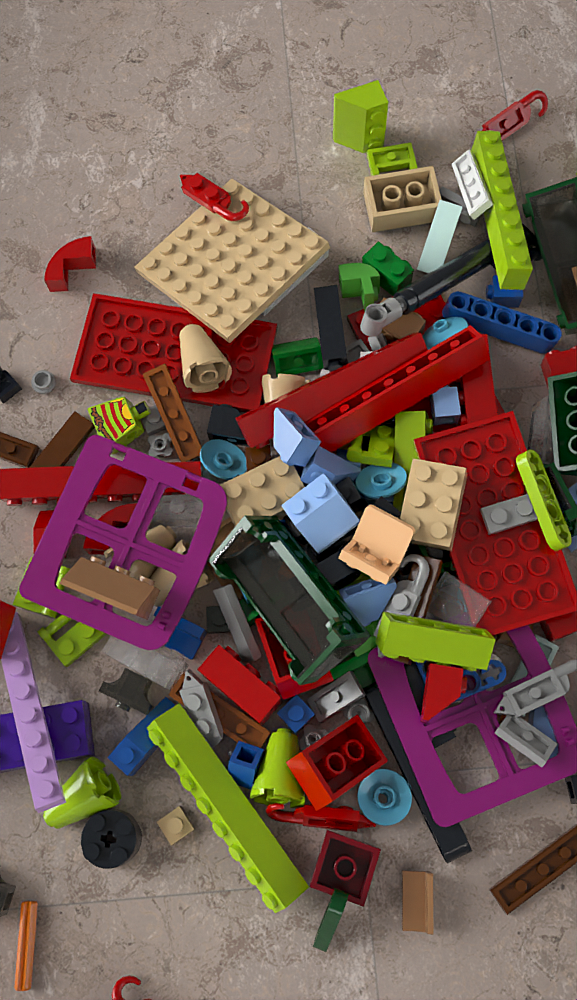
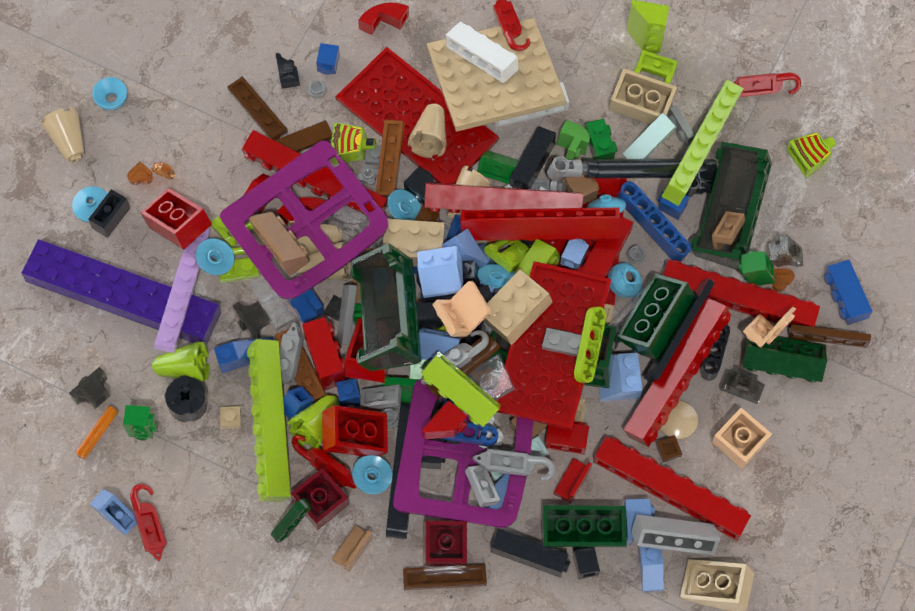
camera: 25 degrees right, 5 degrees down
(35, 342) = (327, 58): none -> blue brick
(46, 633) = (219, 251): none -> medium azure dish
(72, 906) = (139, 422): none -> green brick
(203, 240) = (482, 52): none -> white brick
(293, 438) = (453, 214): medium blue slope -> none
(472, 184) = (696, 114): white tile -> none
(506, 363) = (636, 250): none -> light grey plate
(507, 402) = (619, 282): none -> medium azure piece
(522, 832) = (444, 543): none -> dark red brick

